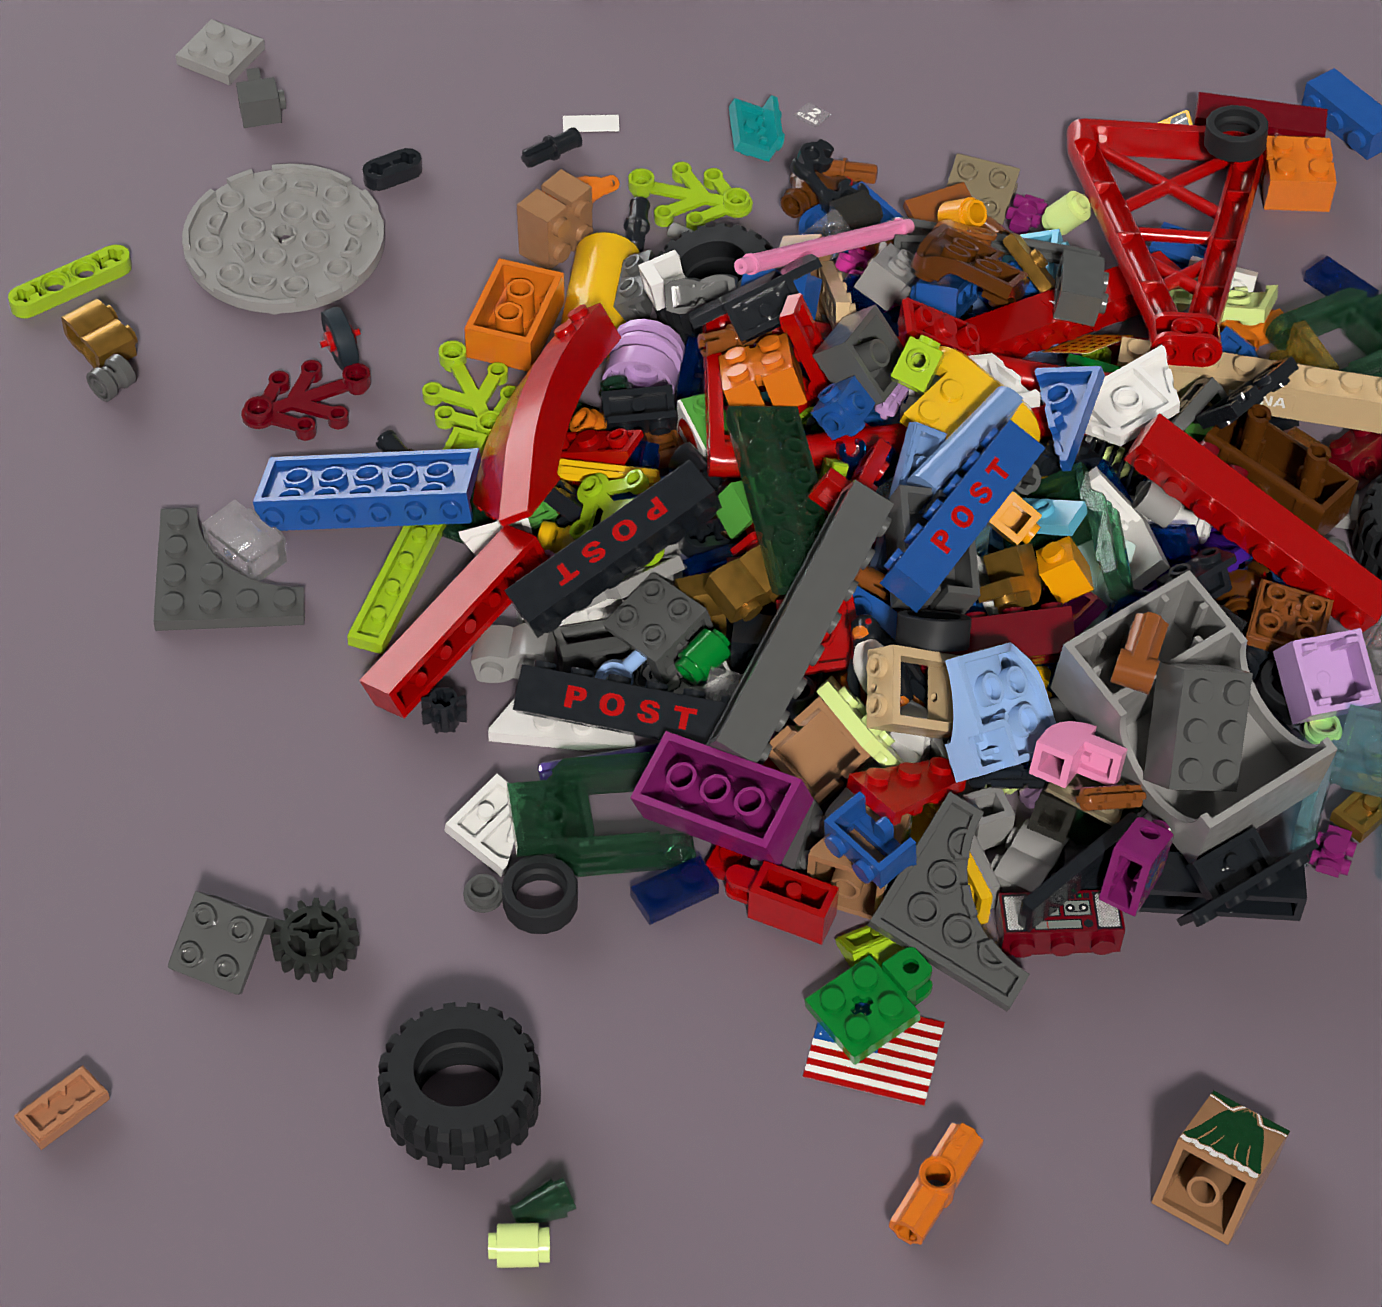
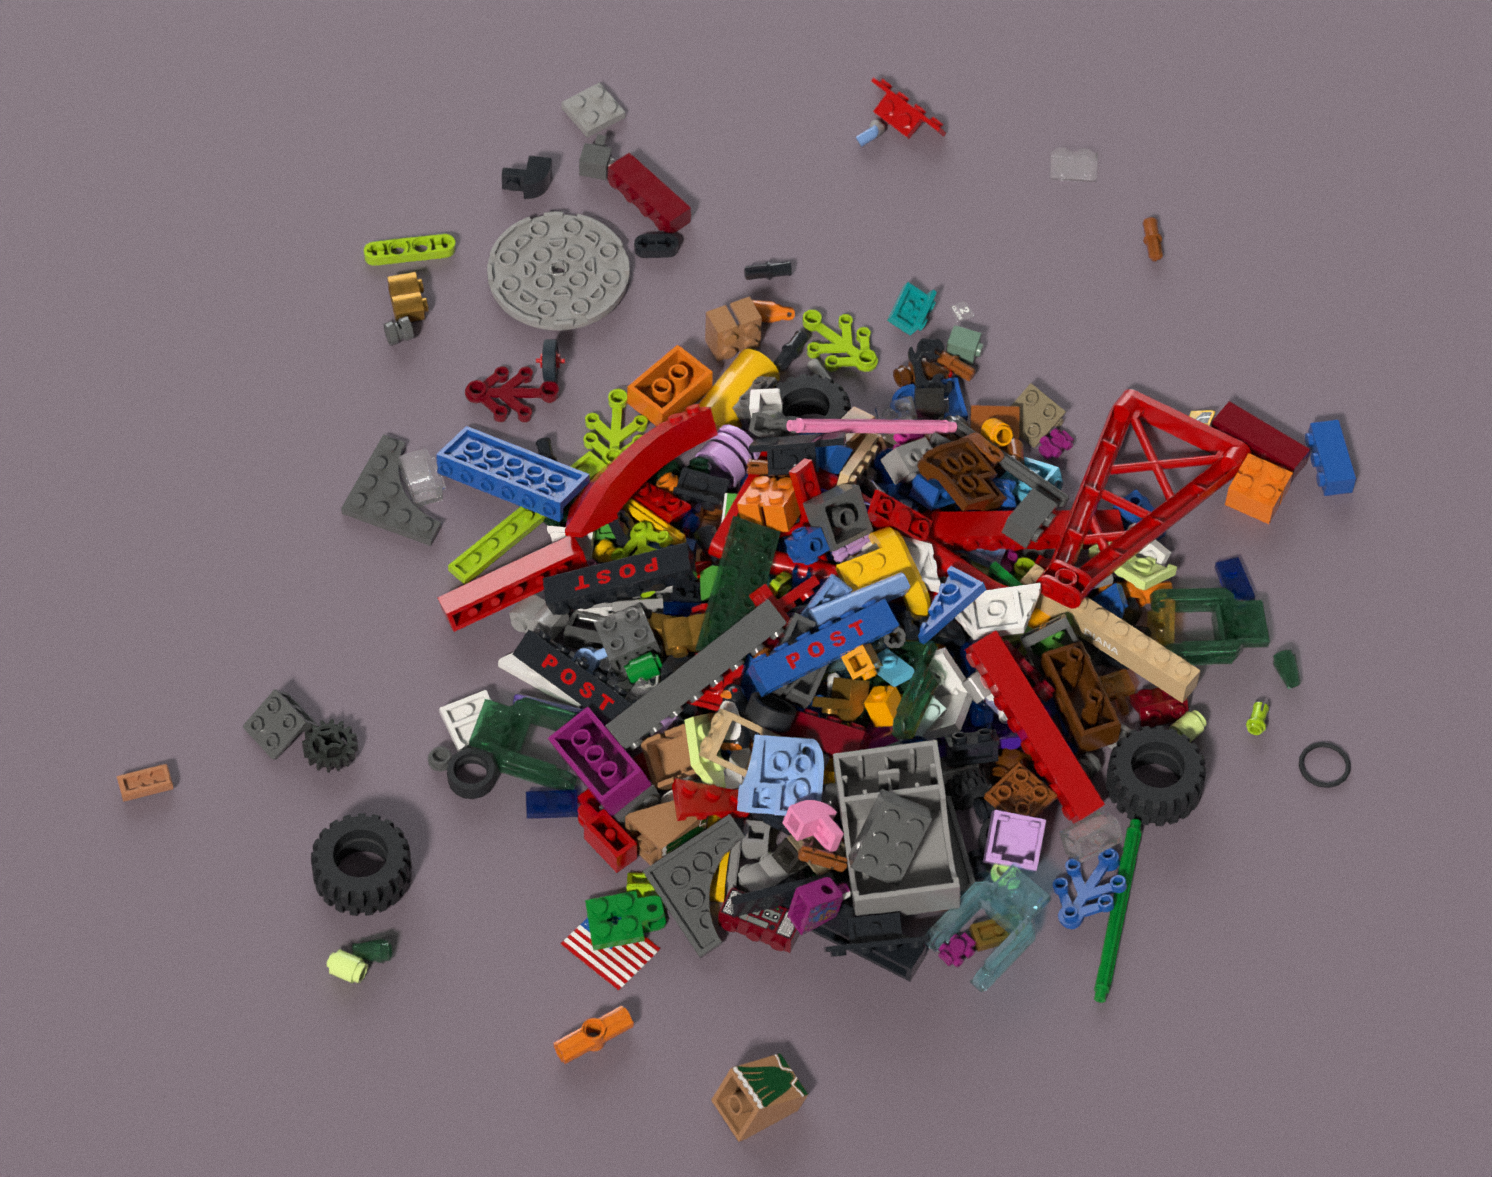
camera: 25 degrees right, 5 degrees up
(187, 150) = (532, 181): none -> black brick
(349, 114) = (649, 194): none -> dark red brick
(444, 709) = (479, 636): black gear -> none
(591, 123) = (808, 260): white sticker -> none
(848, 140) = (965, 344): none -> sand green brick
(878, 833) = (653, 805): blue window -> none
(918, 364) = (863, 536): lime brick -> none
(1030, 261) = (1014, 484): pearl gold plate -> none
(1067, 213) = (1076, 456): yellowish green brick -> none
(1086, 344) = (1018, 558): sticker -> none
(1138, 660) = (866, 784): dark orange piece -> none
(1234, 147) = (1227, 431): black tyre -> none
(1248, 394) = (1082, 638): black wing -> none

